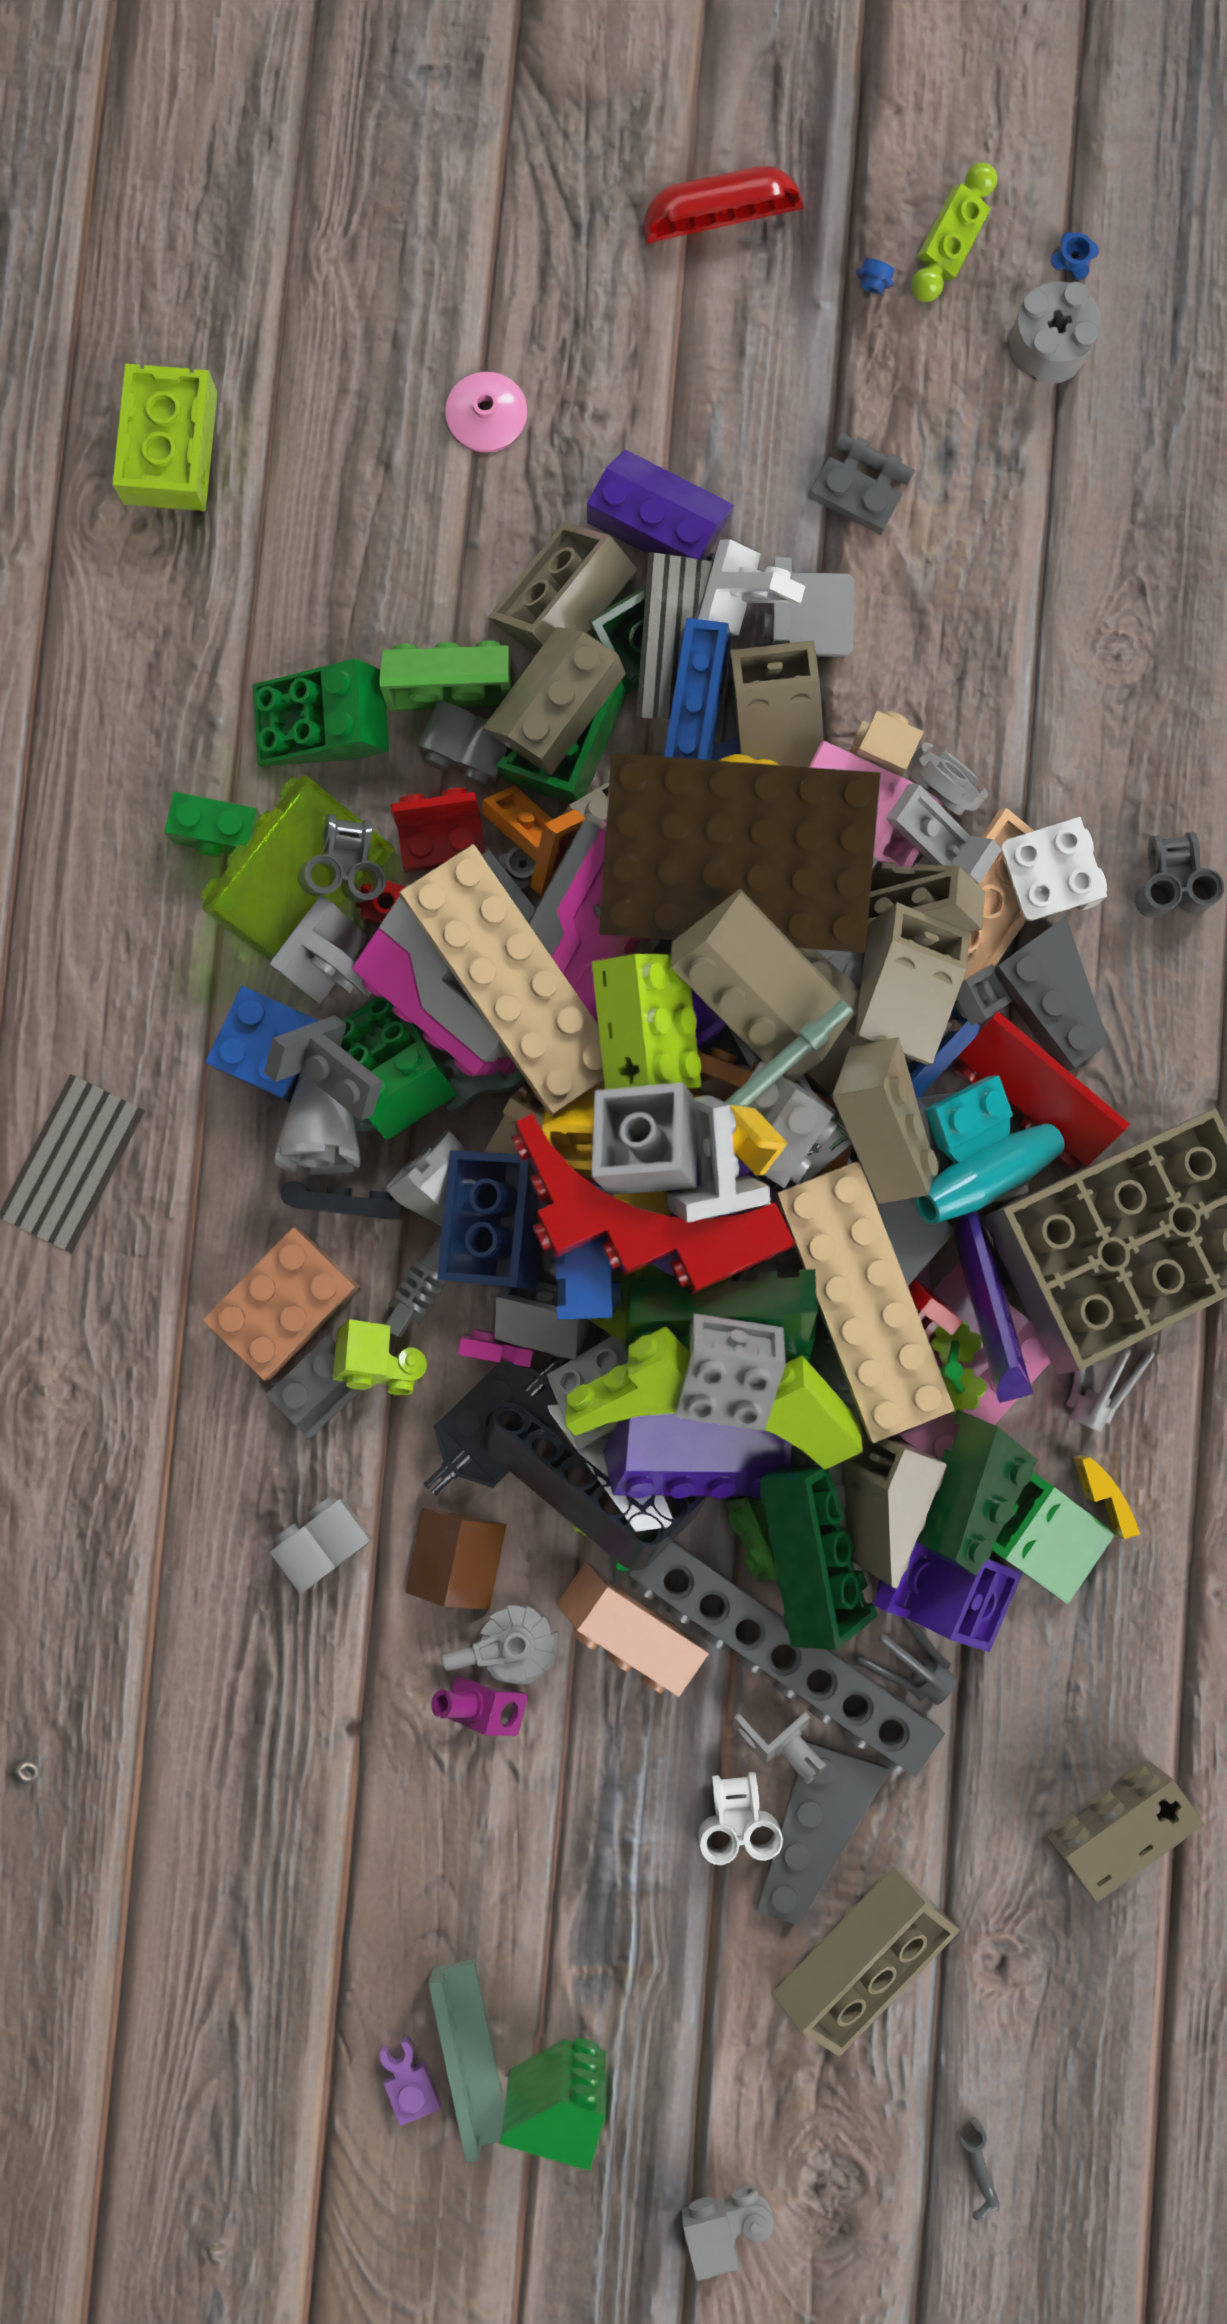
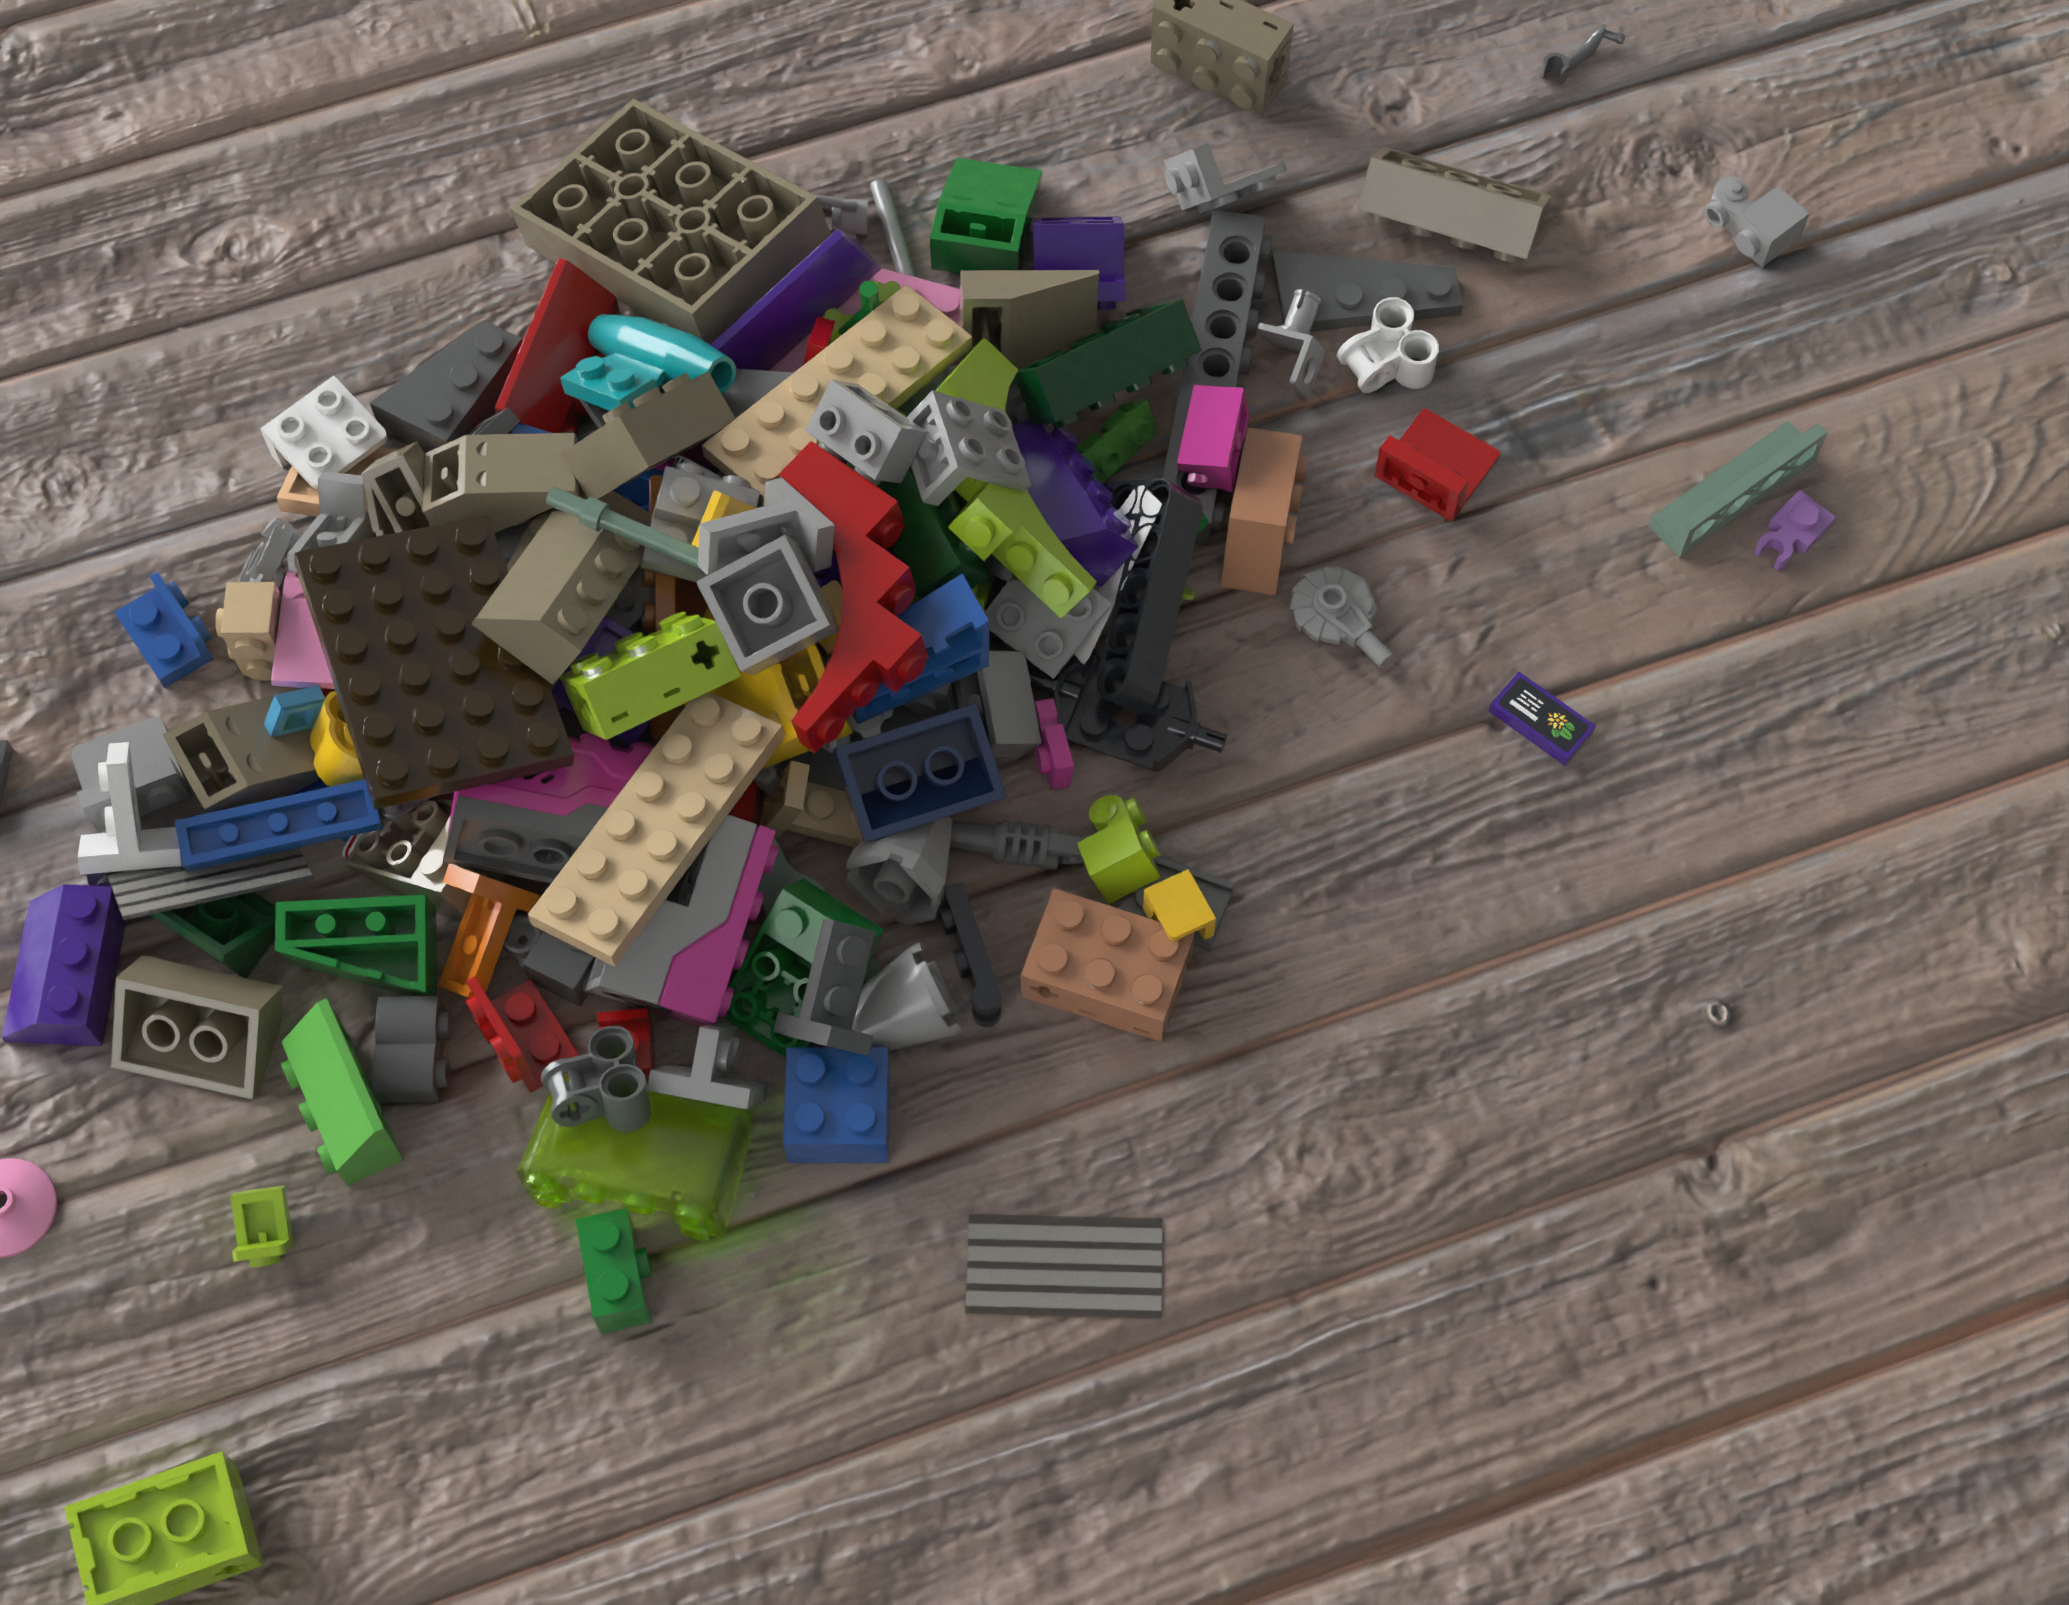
camera: 110 degrees left, 20 degrees down
(288, 1377) = (1179, 907): none -> yellow panel
(319, 1545) = (1333, 821): light grey brick -> none
(321, 715) = (440, 1222): green slope -> none
(336, 1767) = (1542, 718): none -> tile
(373, 585) = (261, 1225): none -> lime bracket
(455, 1559) = (1282, 700): reddish brown slope -> none
(479, 1707) = (1410, 612): magenta bracket -> none
(556, 698) = (324, 948): dark tan slope -> none
(557, 2103) = (1720, 361): green slope -> none
(610, 1805) = (1435, 464): none -> red bracket
(702, 1615) = (1214, 436): none -> dark pink hinge
(778, 1292) = (865, 432): none -> light grey brick
(791, 747) = (294, 711): none -> dark azure tile
(930, 1678) = (1168, 252): dark grey plant -> none
(931, 683) = (164, 632): none -> blue bracket
(964, 1756) = (1198, 181): none -> light grey bracket
(976, 1493) = (944, 246): dark green wedge -> none
(1063, 1442) = (892, 227): none -> light grey bar
(1099, 1486) = (919, 180): yellow slope -> none
(1174, 869) = (288, 337): dark grey piece -> none

